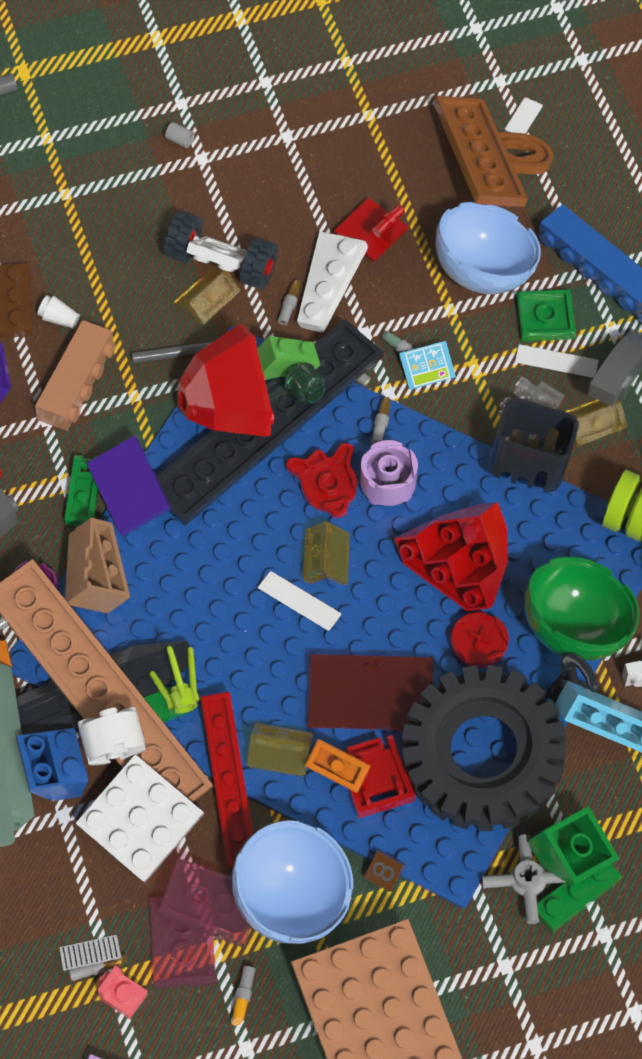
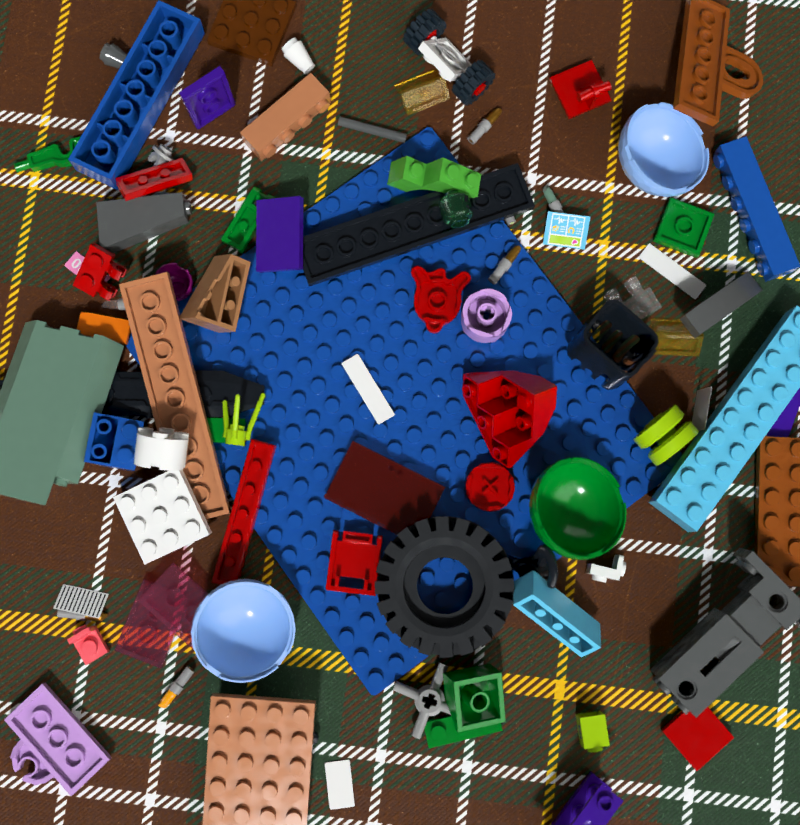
camera: 25 degrees right, 20 degrees up
(227, 386) = (390, 185): red brick -> none
(279, 749) = (293, 507): clear yellow panel -> none
(326, 553) = (406, 361): clear yellow panel -> none
(329, 276) = (526, 117): white wing -> none
(337, 765) = (327, 545): orange slope -> none
(384, 870) = (325, 641): reddish brown tile -> none
(476, 1016) = (339, 784): none -> white sticker
(524, 116) = (756, 39): white sticker -> none

